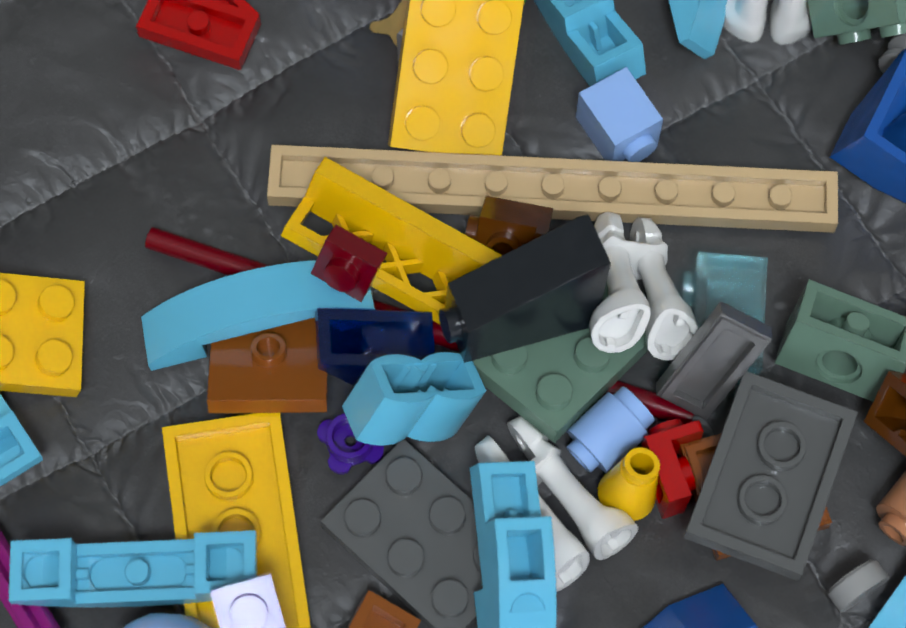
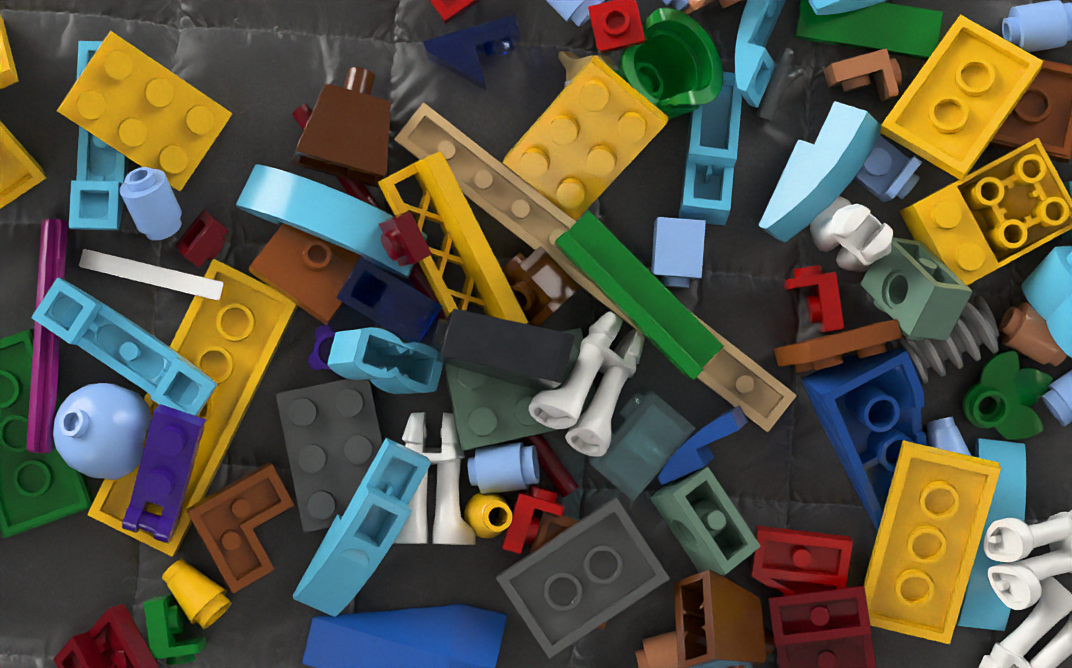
camera: 35 degrees right, 20 degrees up
(60, 413) = (151, 203): none -> light blue brick
(105, 490) = (151, 274): none -> white sticker
(137, 416) = (202, 239): none -> dark red plate
(218, 218) = (347, 131): none -> reddish brown torso
(276, 75) = (460, 49): none -> clear blue slope
(615, 177) = (639, 295): none -> green fence
(714, 360) = (601, 477): flat silver tile -> none
(783, 288) = (695, 451): none -> blue slope
(791, 68) = (825, 303): none -> red bracket
(836, 93) = (827, 350): none -> dark orange plate

